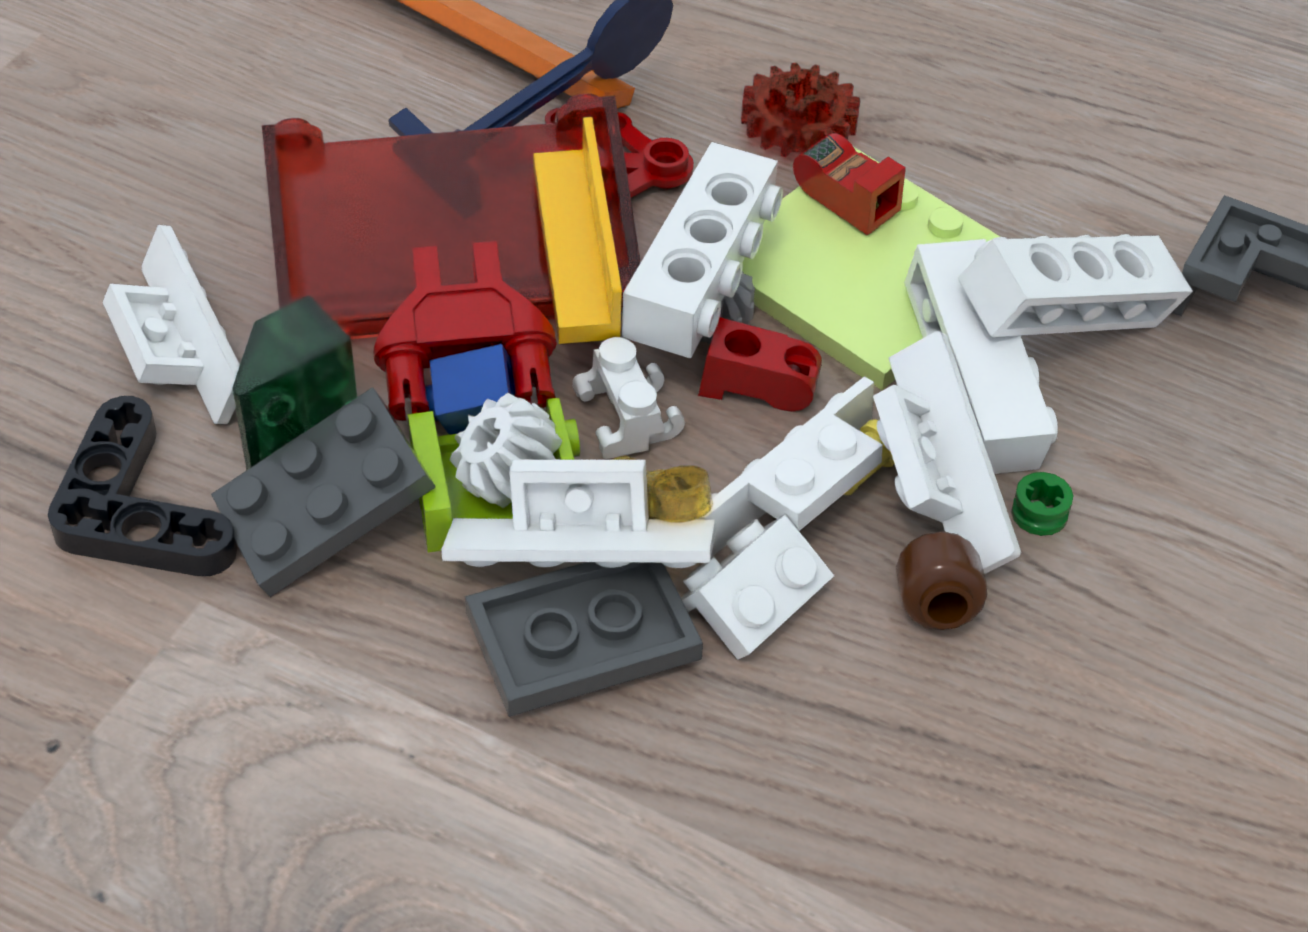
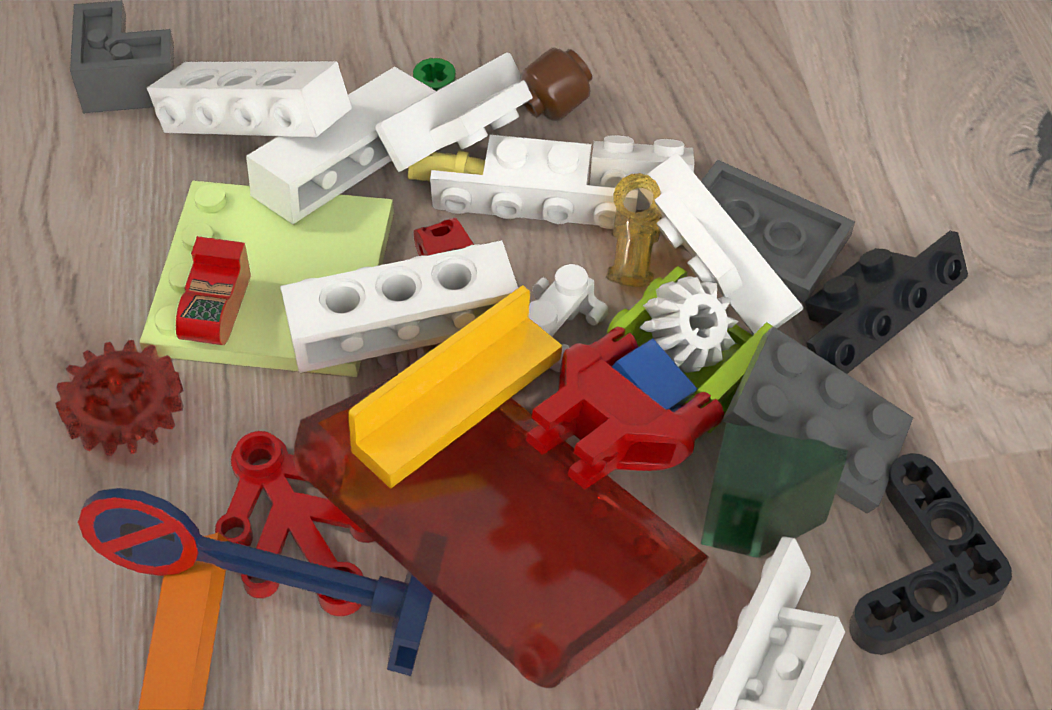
camera: 125 degrees left, 5 degrees up
(408, 658) = (881, 299): none -> black bracket

